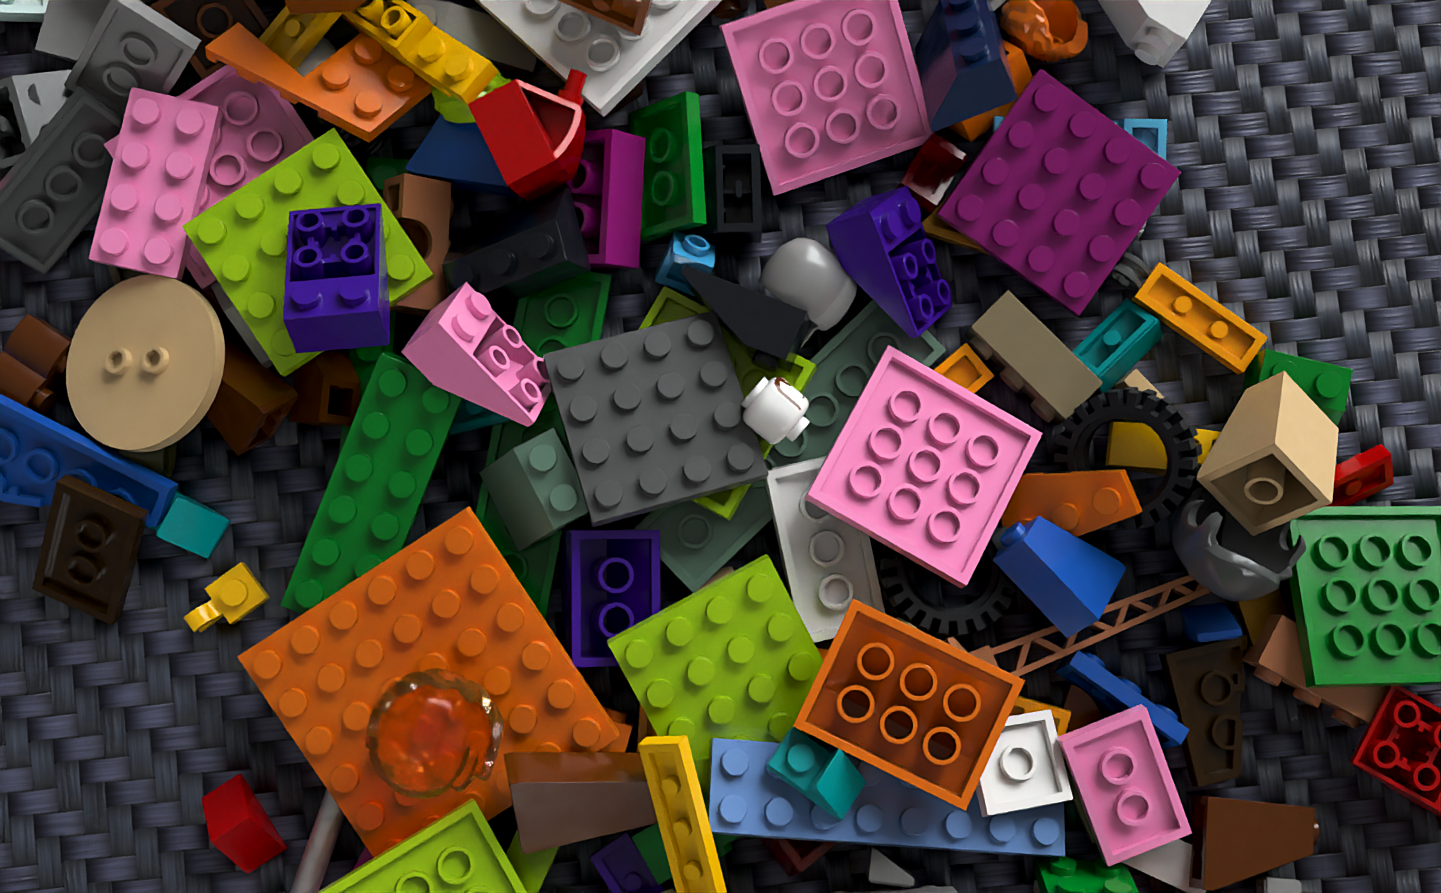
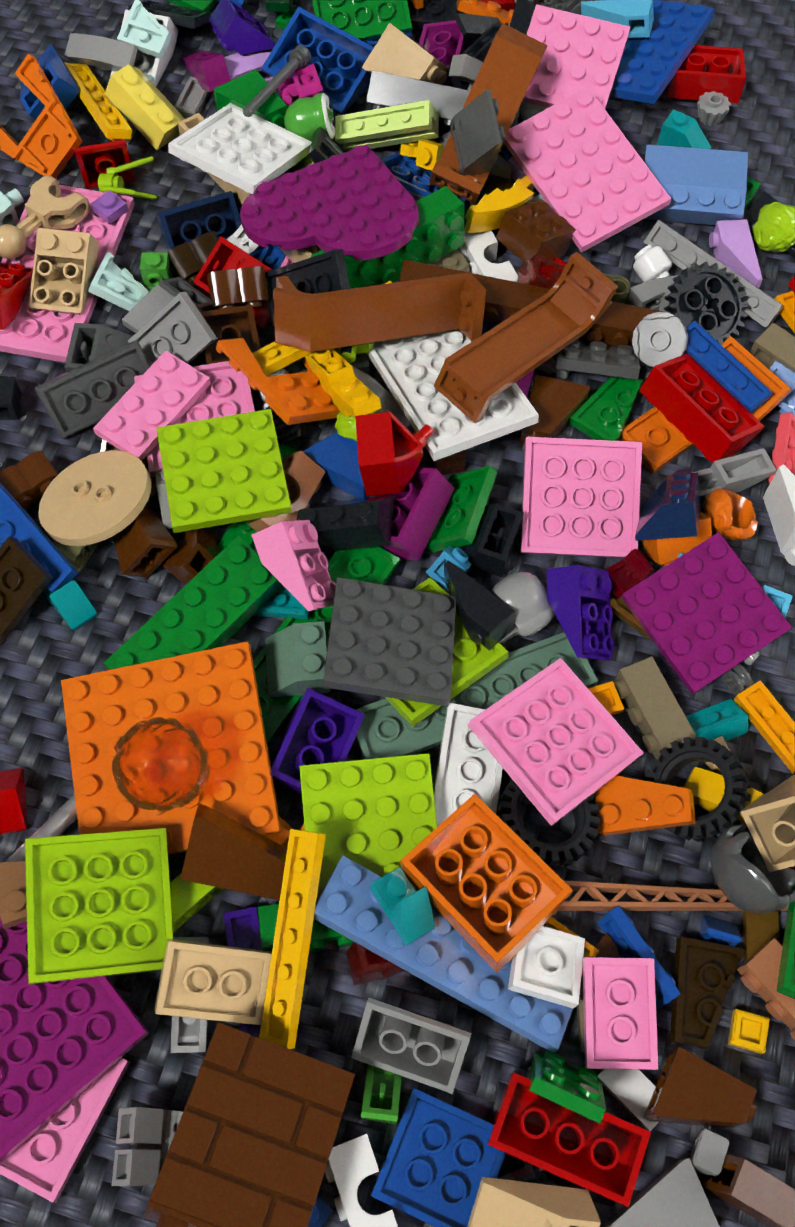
camera: 20 degrees right, 20 degrees down
(231, 596) = (75, 658): yellow plate -> none
(336, 279) = (231, 484): dark purple slope -> none
(775, 410) = (470, 663): white head -> none
(885, 870) = (424, 1006): light grey slope -> none
(1059, 573) = (622, 842): blue slope -> none
(1280, 731) = (748, 1031): none -> yellow tile

